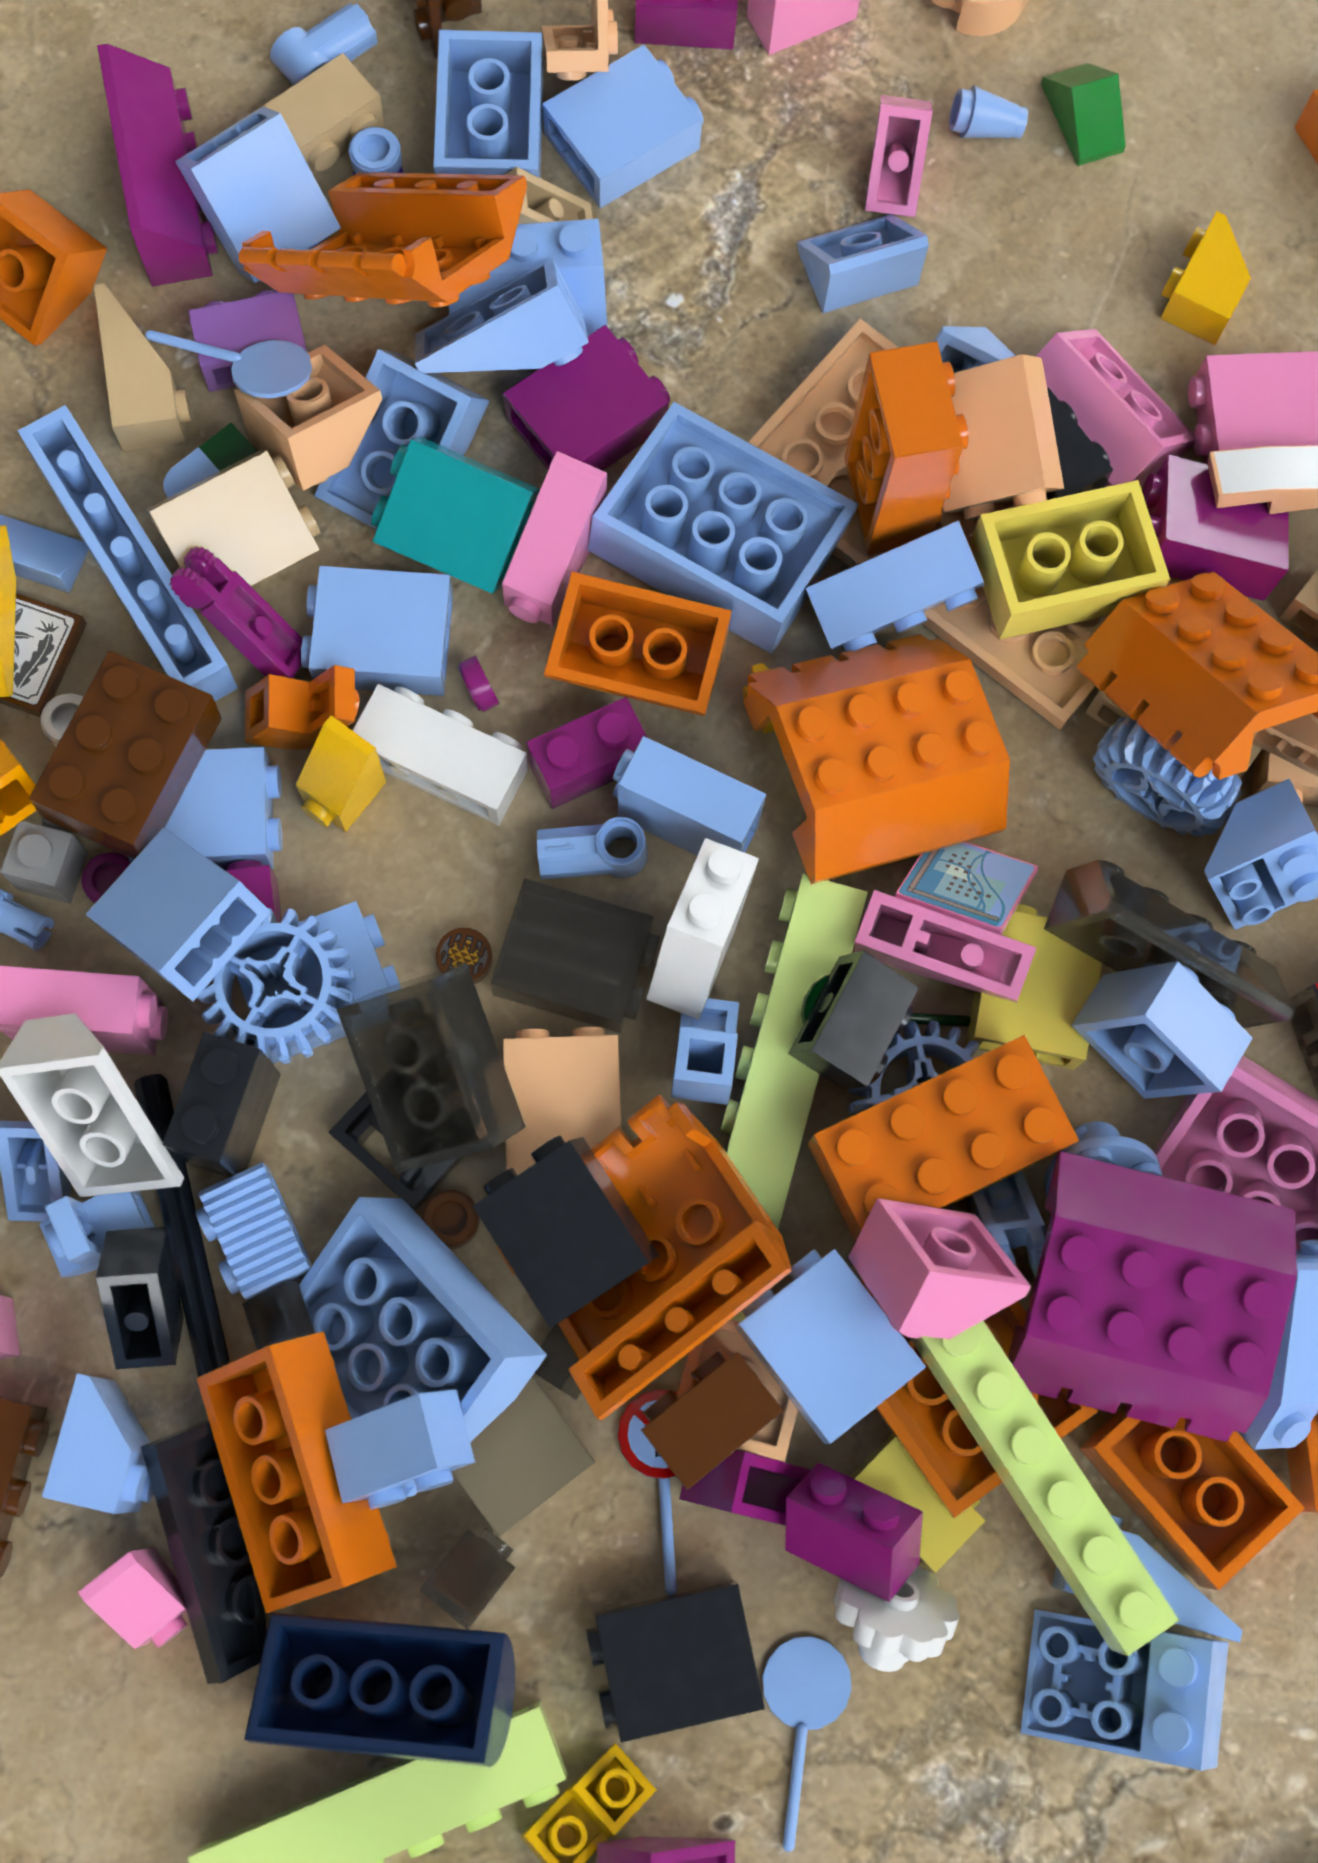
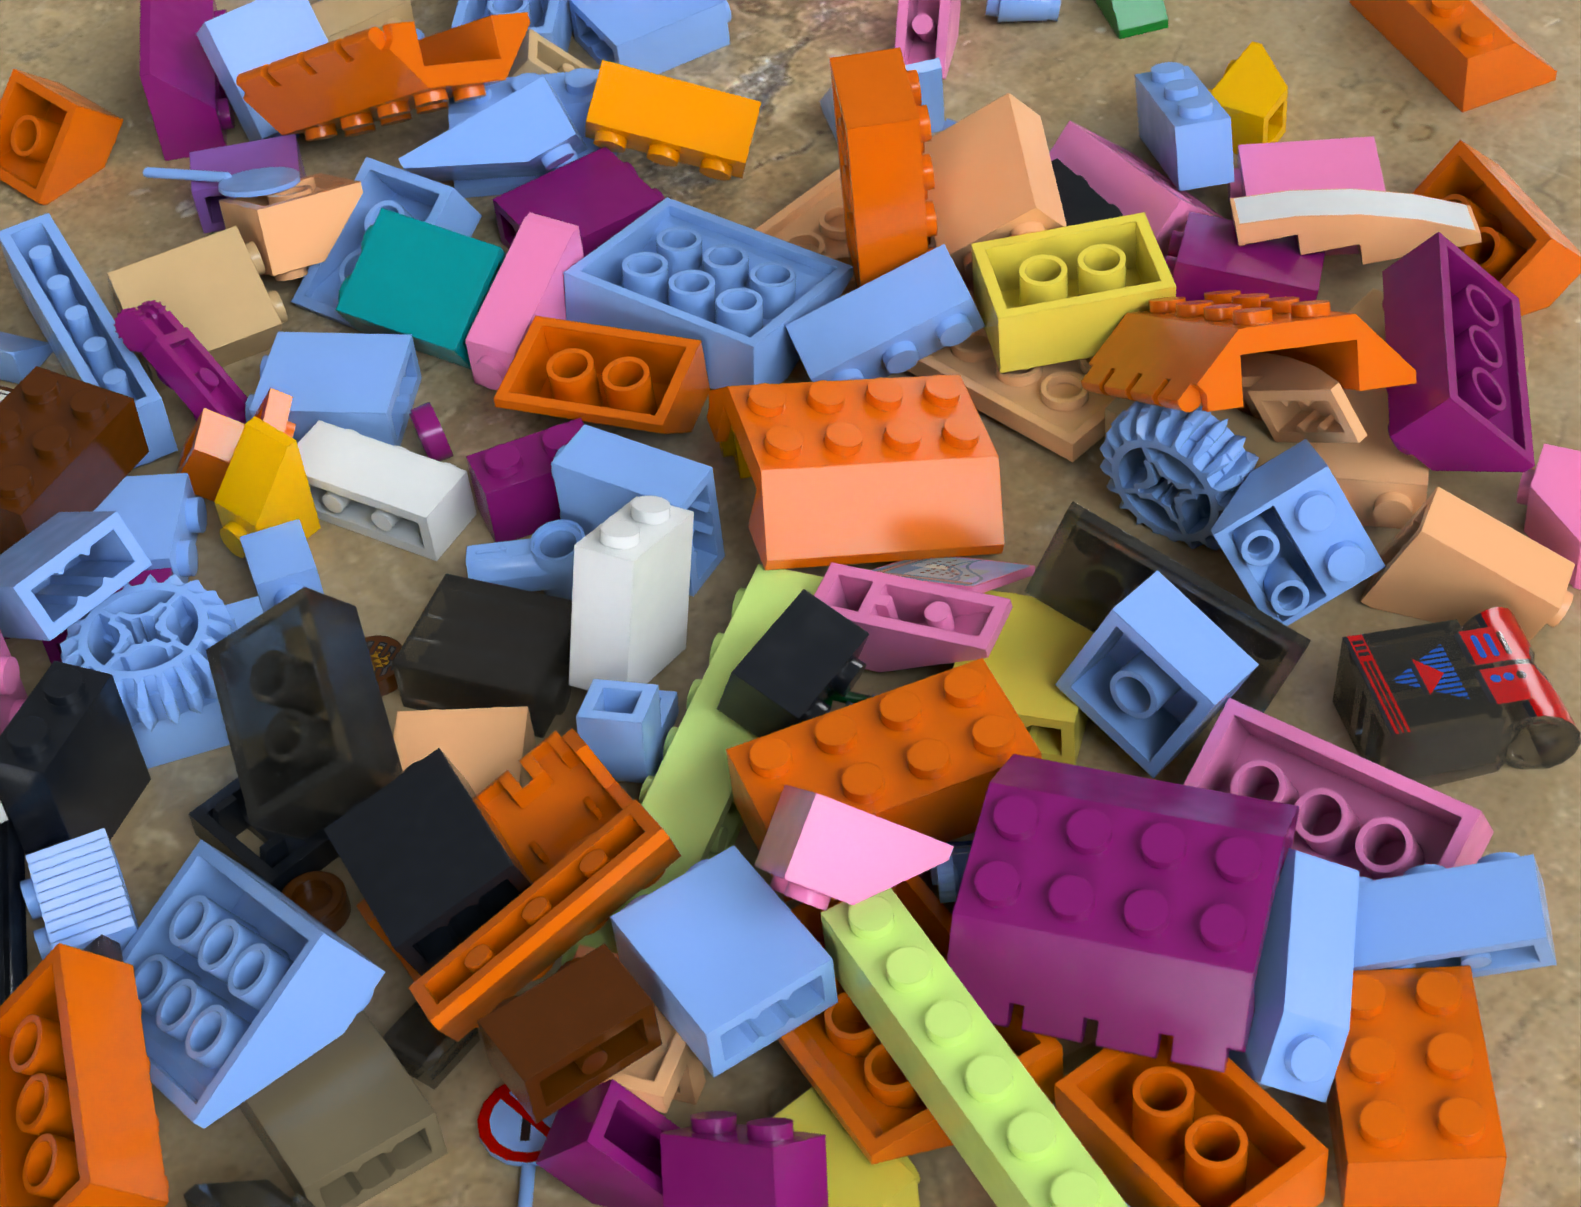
camera: 15 degrees right, 30 degrees down
(140, 386) = (128, 212): tan slope -> none
(368, 857) = (280, 562): none -> light blue brick
(400, 1447) = (189, 1044): light blue brick -> none
(668, 298) = (671, 120): none -> light orange brick
(1157, 329) = (1184, 127): none -> light blue brick

